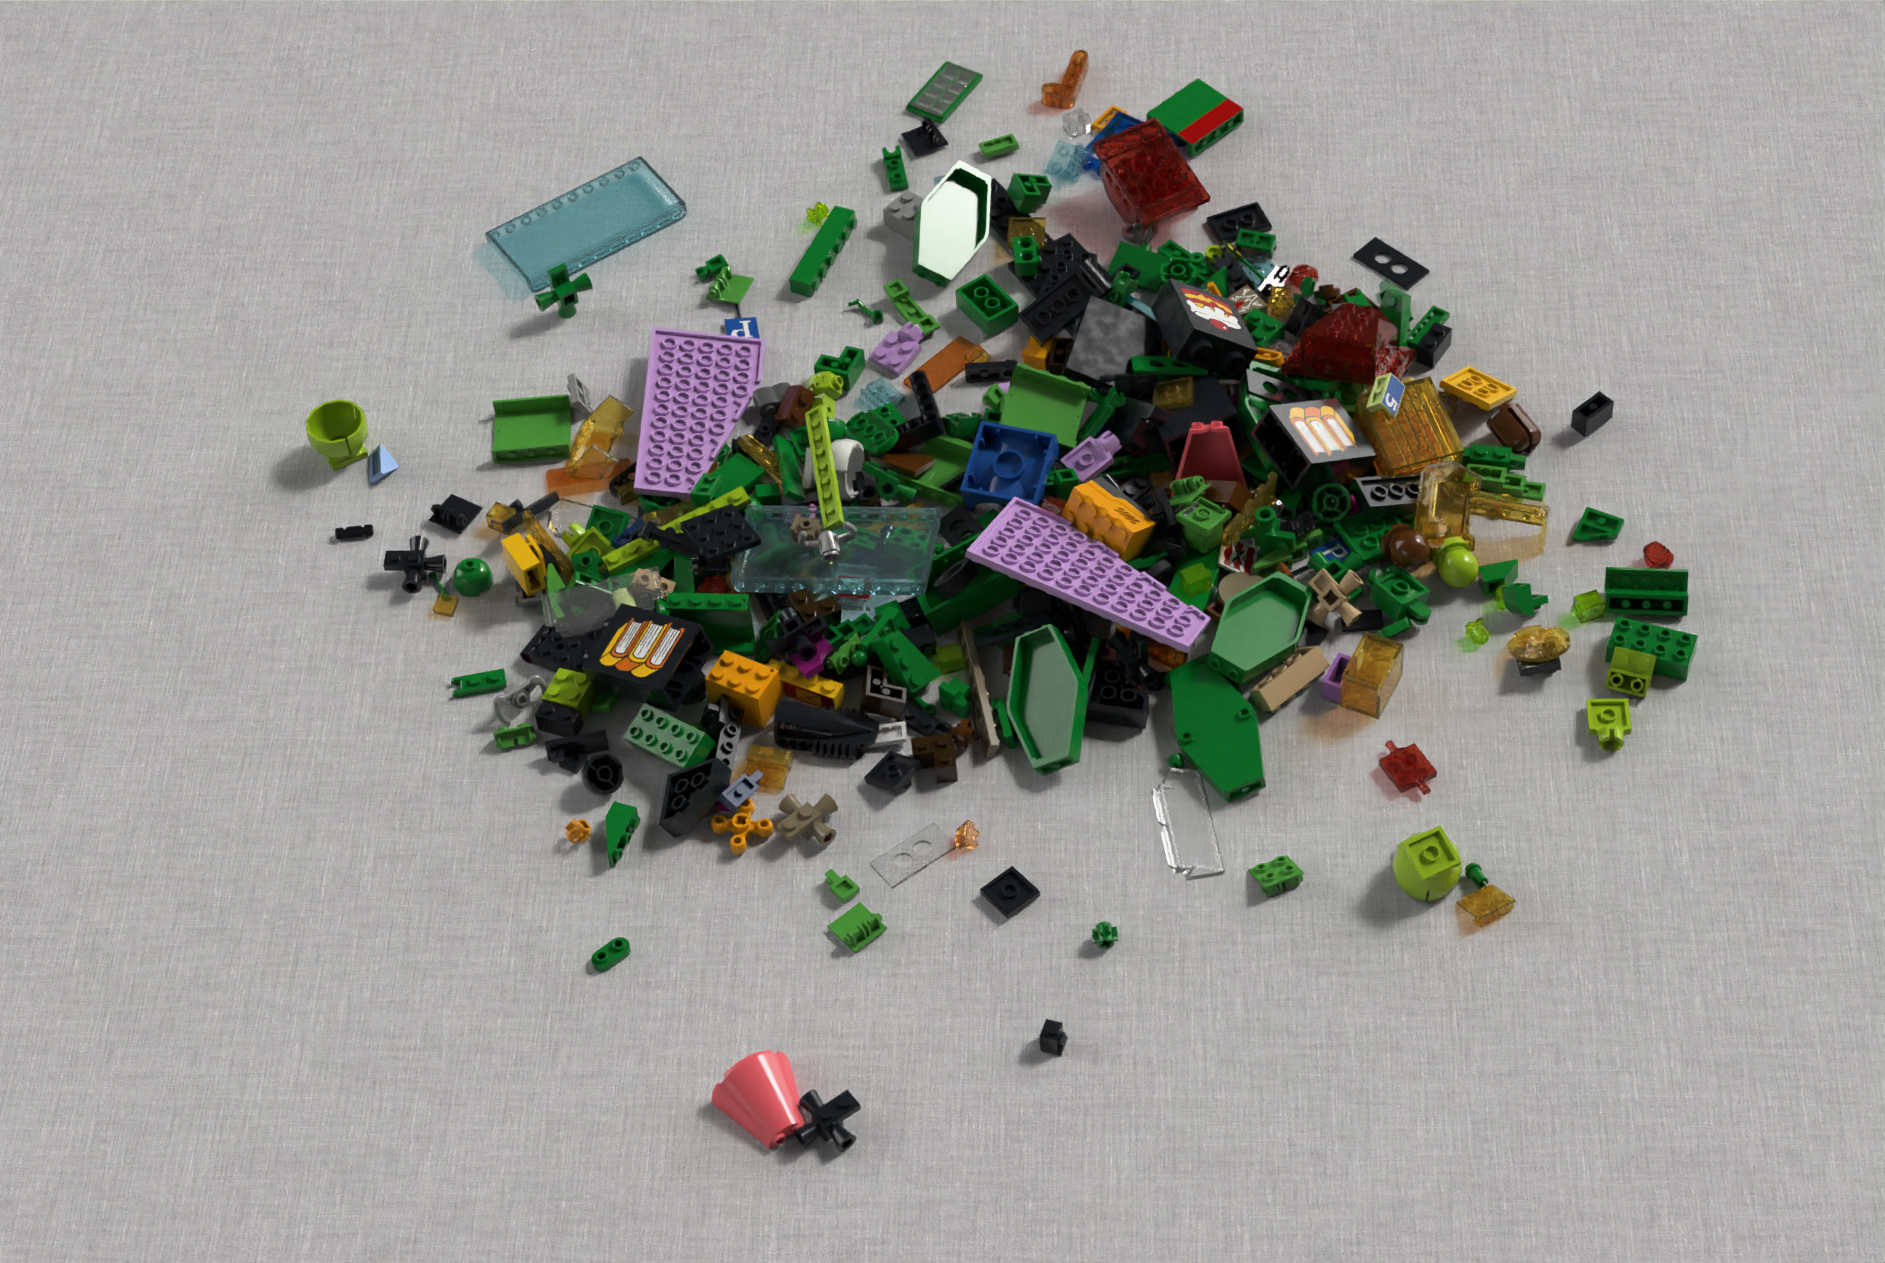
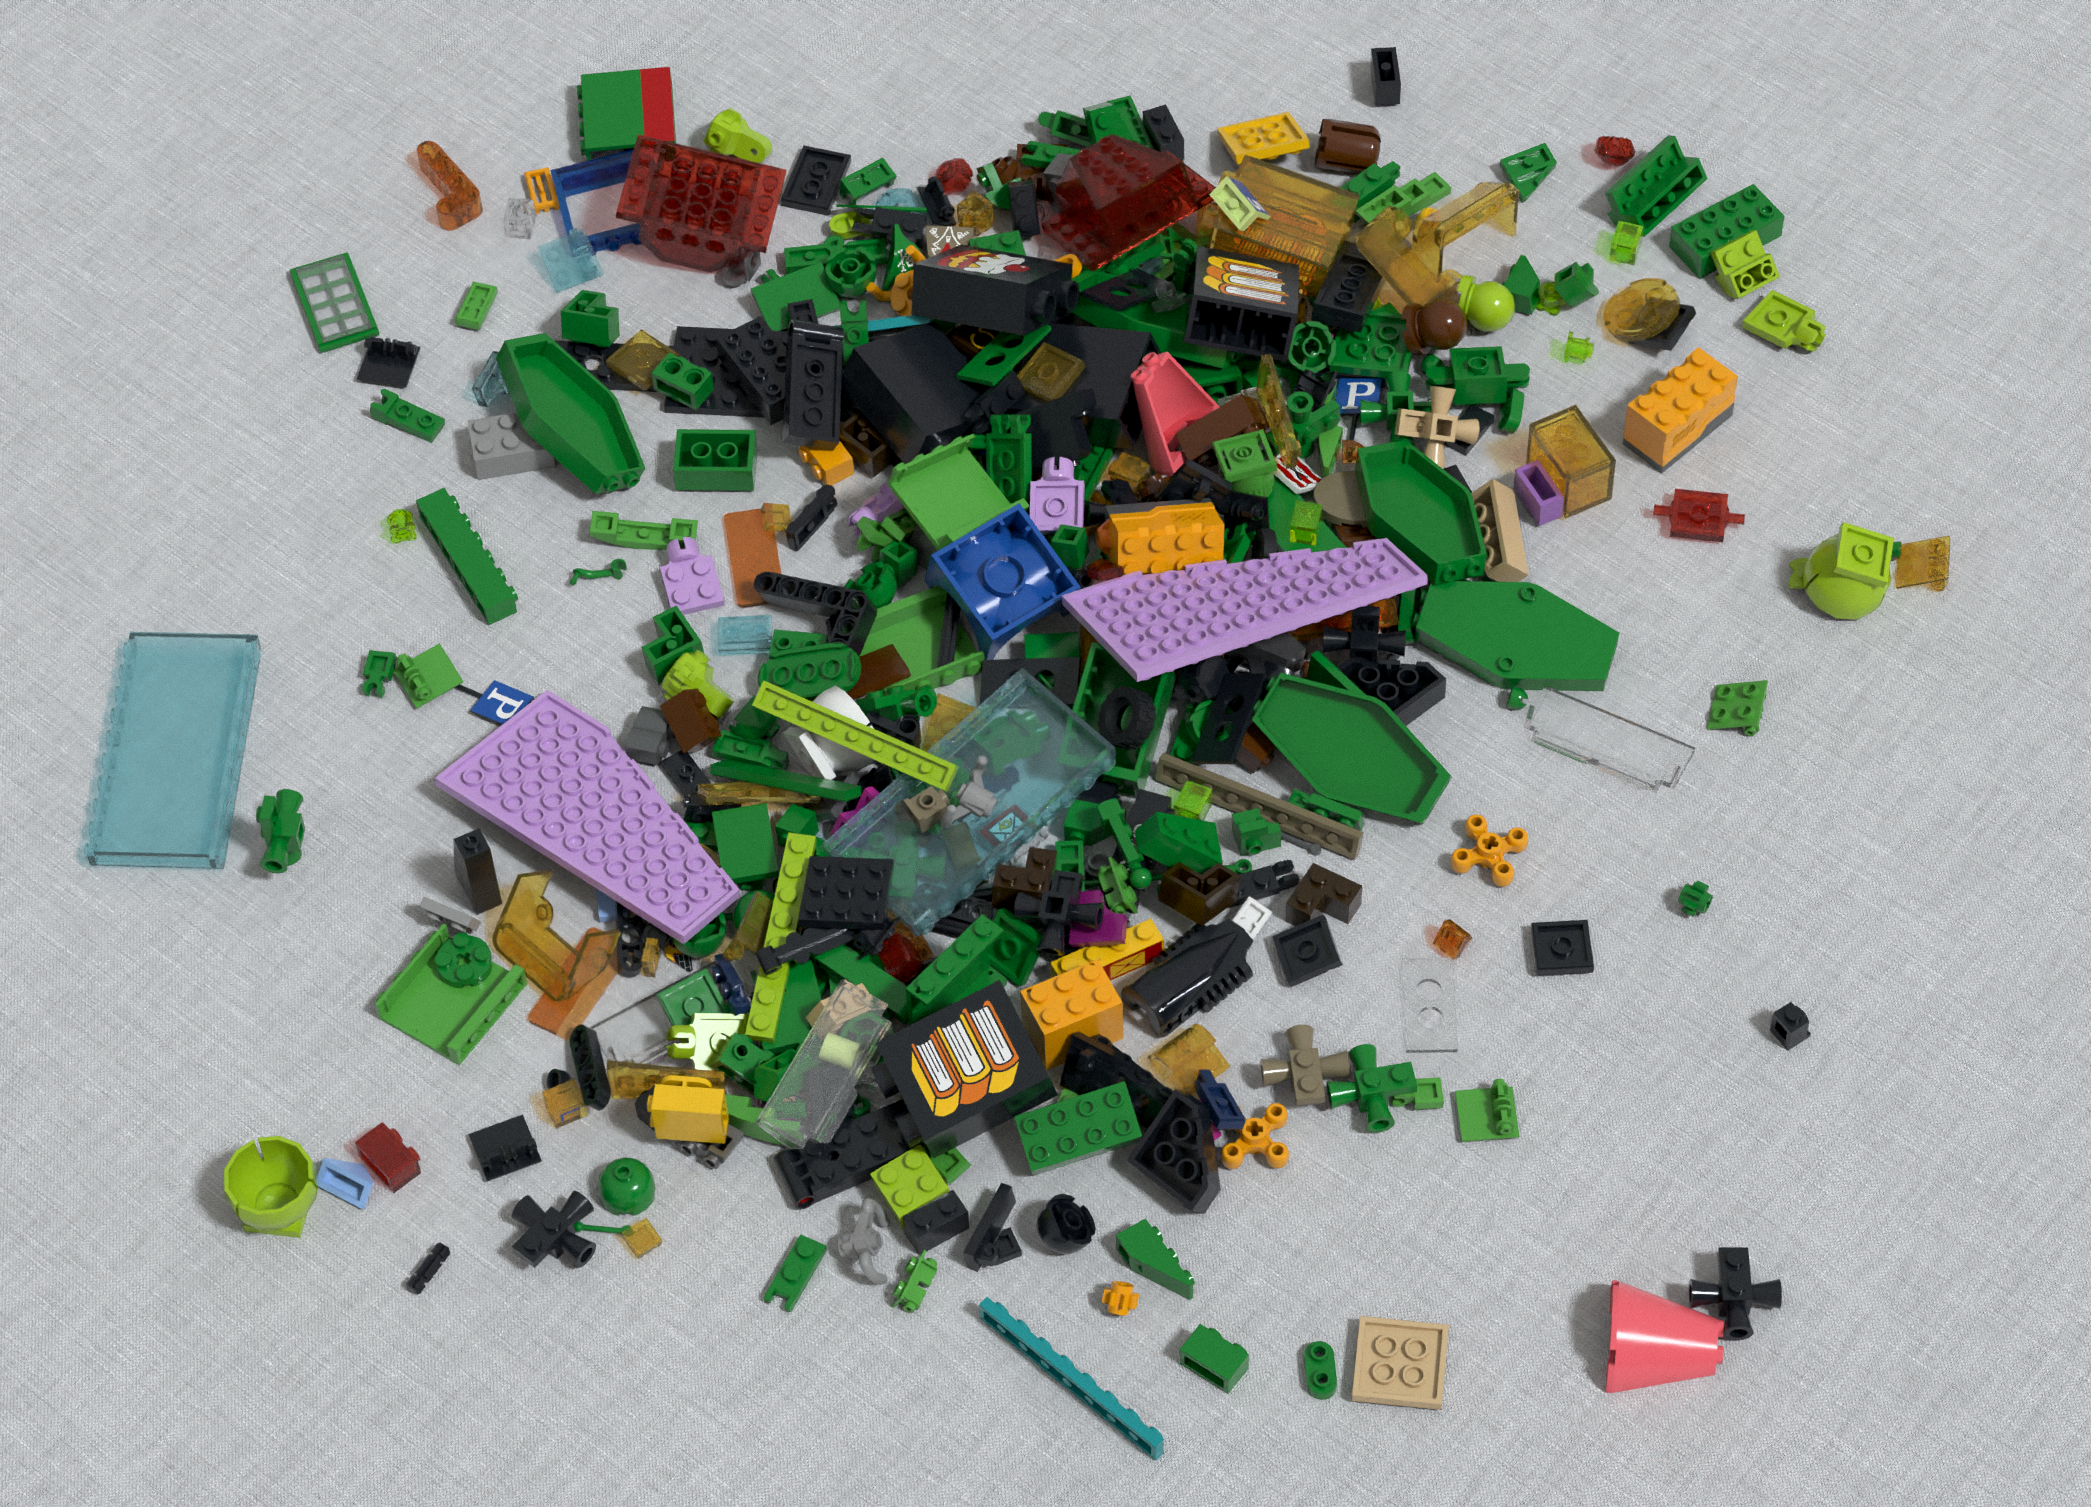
camera: 55 degrees left, 5 degrees up
(407, 470) = (388, 1156): none -> clear red brick
(507, 848) = (1079, 1384): none -> teal plate
(566, 418) = (464, 947): none -> green plate
(574, 898) = (1214, 1358): none -> green piece
(607, 377) = (476, 871): none -> black slope
(645, 987) = (1400, 1362): none -> tan plate
(706, 488) = (751, 869): green hinge -> none
(821, 858) = (1372, 1087): none -> green brick
(963, 734) = (1315, 852): reddish brown plate -> none
(1047, 814) = (1489, 850): none -> light orange gear
(1187, 490) = (1202, 446): bright green hinge -> none
(1224, 164) = (731, 135): none -> lime piece
(1405, 280) = (973, 109): black piece -> none
(1473, 706) = (1680, 410): none -> light orange piece

